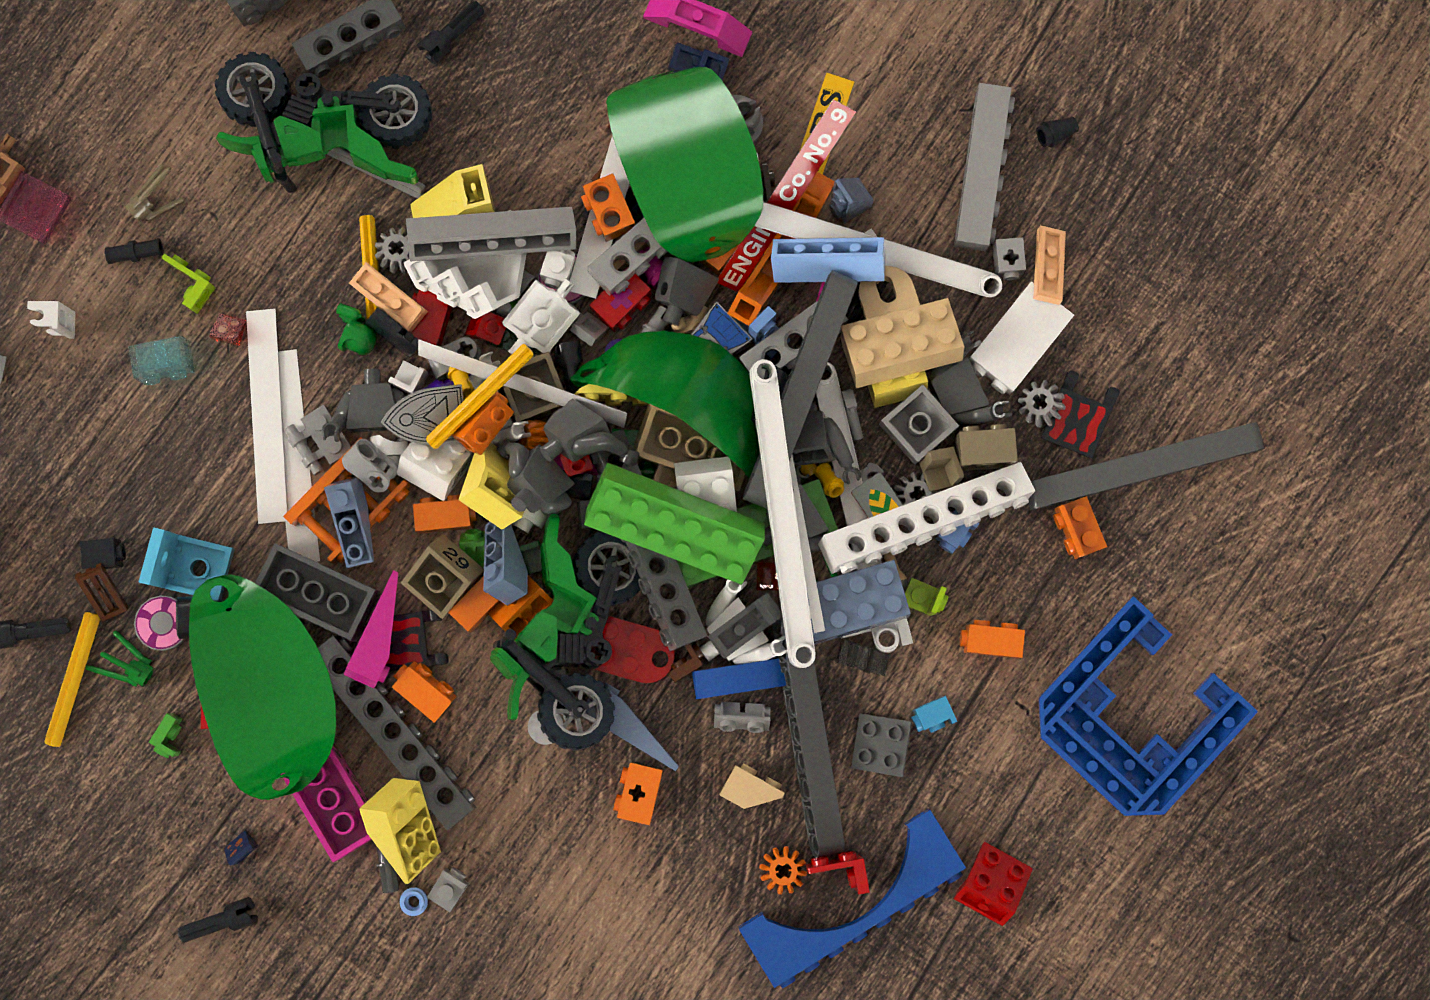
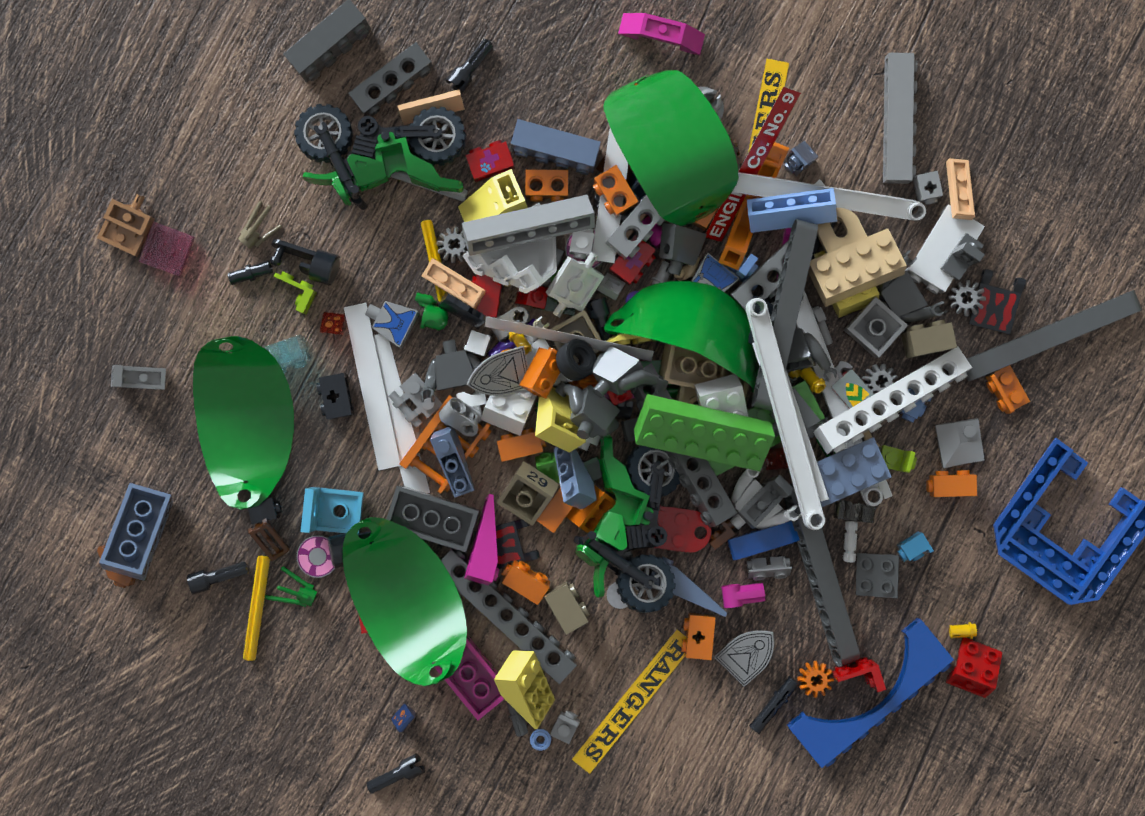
camera: 10 degrees left, 5 degrees up
(56, 316) = (200, 333): white hinge -> none
(93, 429) = (242, 418): none -> green piece
(166, 731) = (335, 637): bright green bracket -> none
(224, 433) = (343, 405): none -> black brick
(226, 253) = (323, 265): none -> black piece
(305, 336) = (393, 321): none -> torso
(418, 69) = (449, 100): none -> light nougat tile
(457, 151) = (490, 161): none -> red brick
(472, 730) = (566, 607): none -> dark tan brick
(479, 396) = (539, 354): yellow axle -> none
(515, 418) = (567, 364): none -> black tyre
(528, 183) = (546, 178): none -> orange brick
(538, 871) = (631, 703): none -> yellow sticker
(542, 144) = (555, 146): none -> sand blue brick
(688, 57) = (659, 62): dark blue slope -> none
(695, 746) = (737, 595): none -> dark pink piece
(698, 826) = (747, 655): none -> light grey shield
(725, 897) = (776, 702): none -> black pin
(748, 790) = (782, 622): tan slope -> none
(852, 696) = (850, 541): none -> white axle
(941, 469) = (898, 360): dark tan panel -> none
(984, 833) = (960, 631): none -> yellow pin
(1010, 588) = (959, 442): none -> light grey plate
(1039, 349) = (963, 255): none -> dark grey bracket
(1055, 131) = (951, 82): black cone -> none

